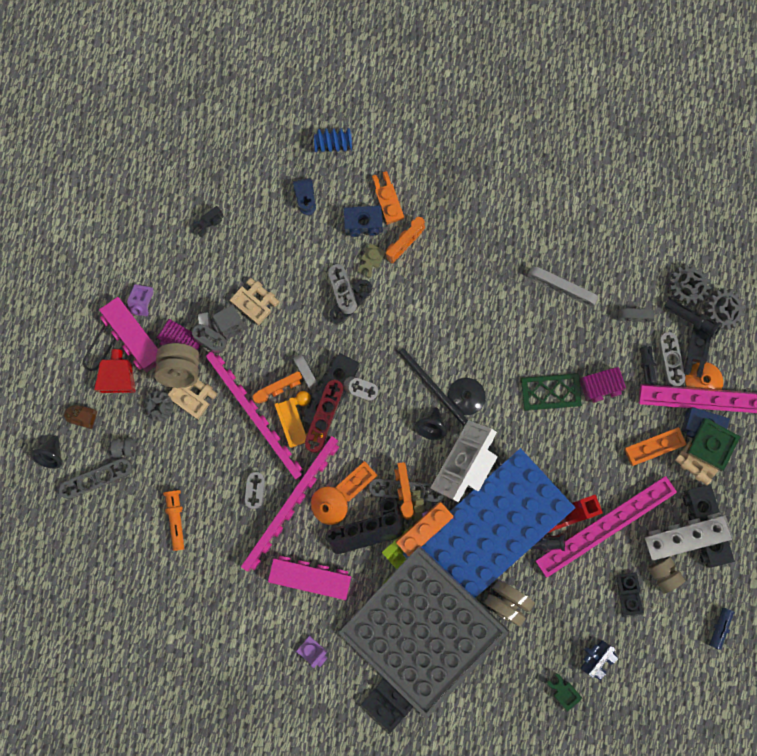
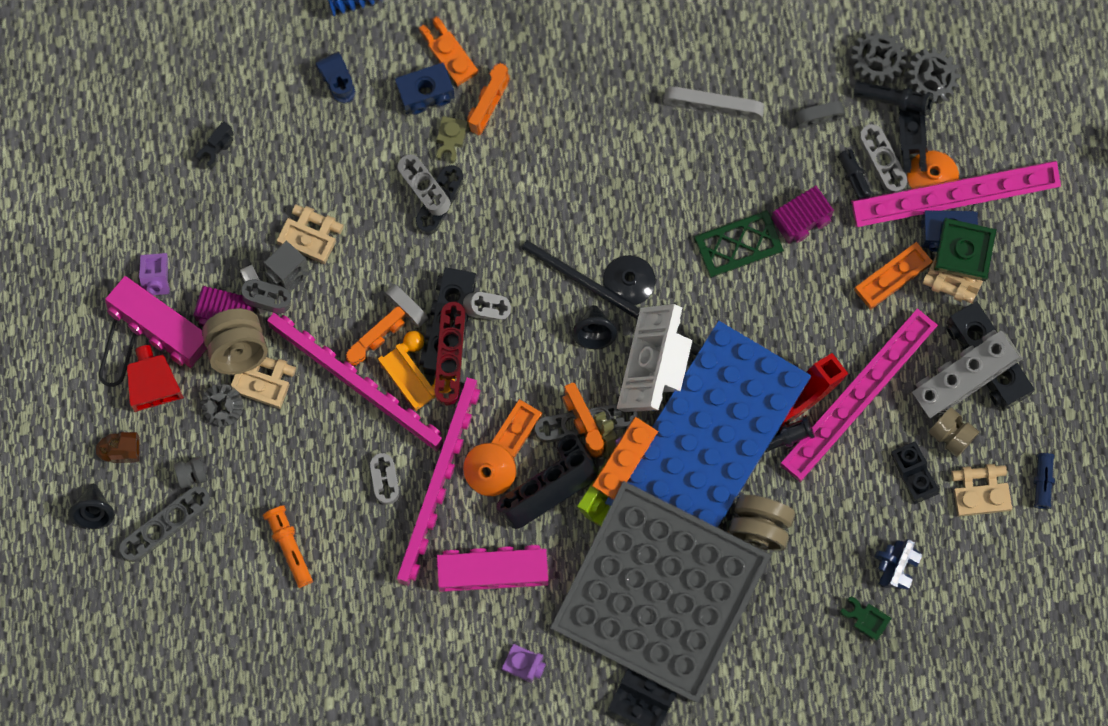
camera: 20 degrees left, 5 degrees down
(674, 628) = (981, 499): none -> tan plate

